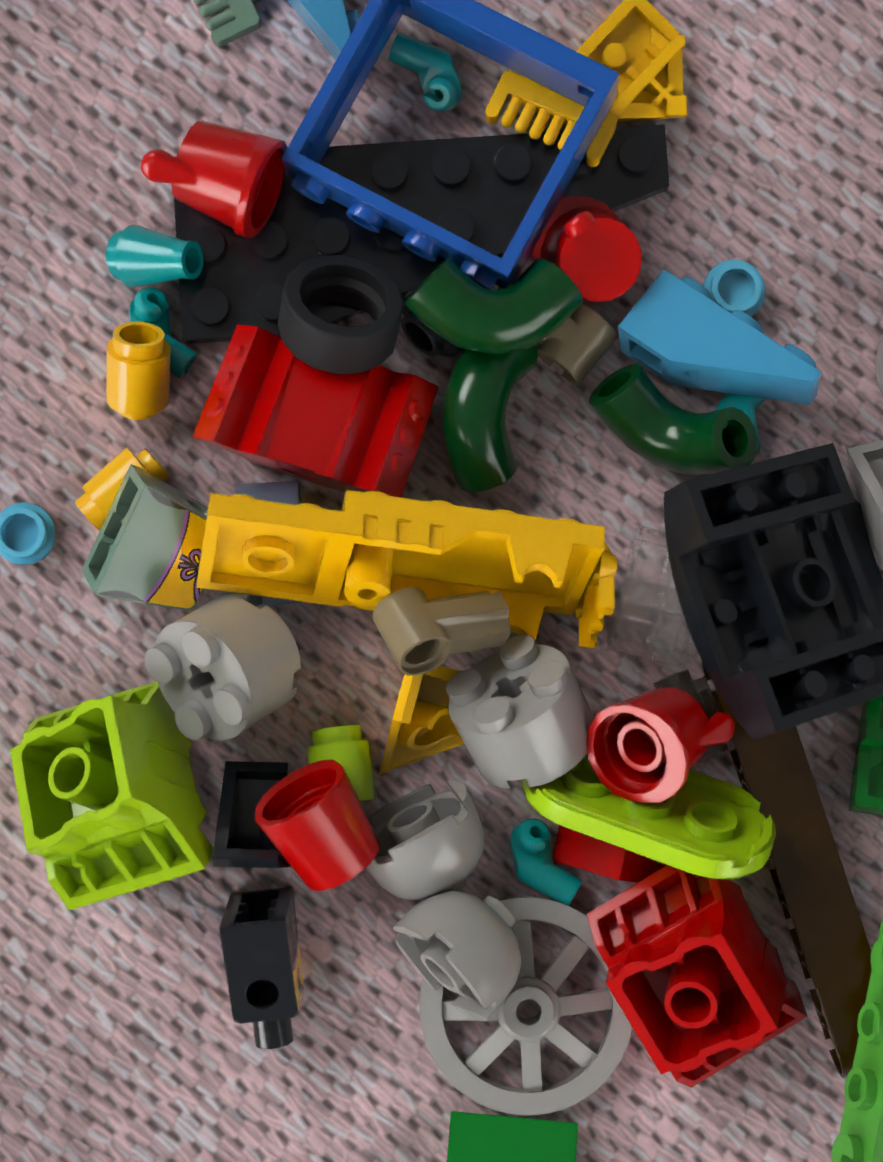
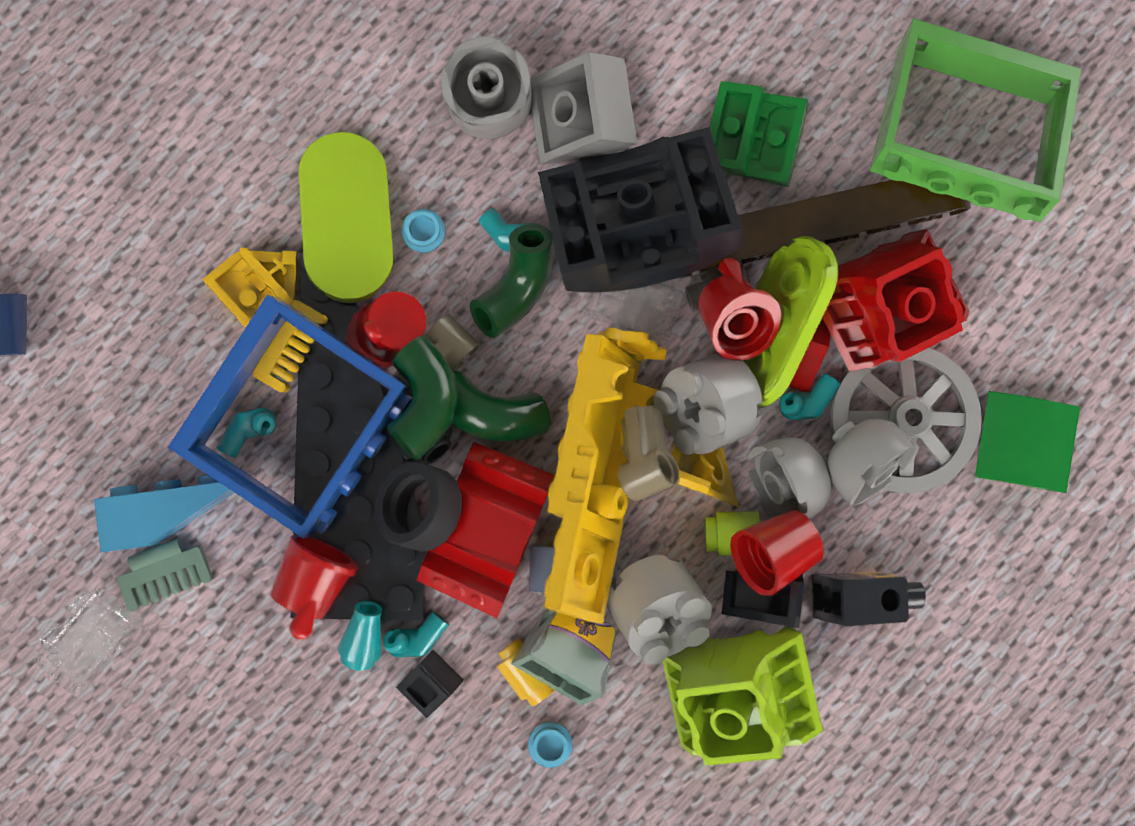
camera: 90 degrees left, 0 degrees up
(85, 356) = (430, 683): none -> black slope
(138, 370) = (442, 653): yellow brick -> none
(703, 346) = (462, 254): dark azure slope -> none
(742, 178) = (345, 217): none -> lime tile

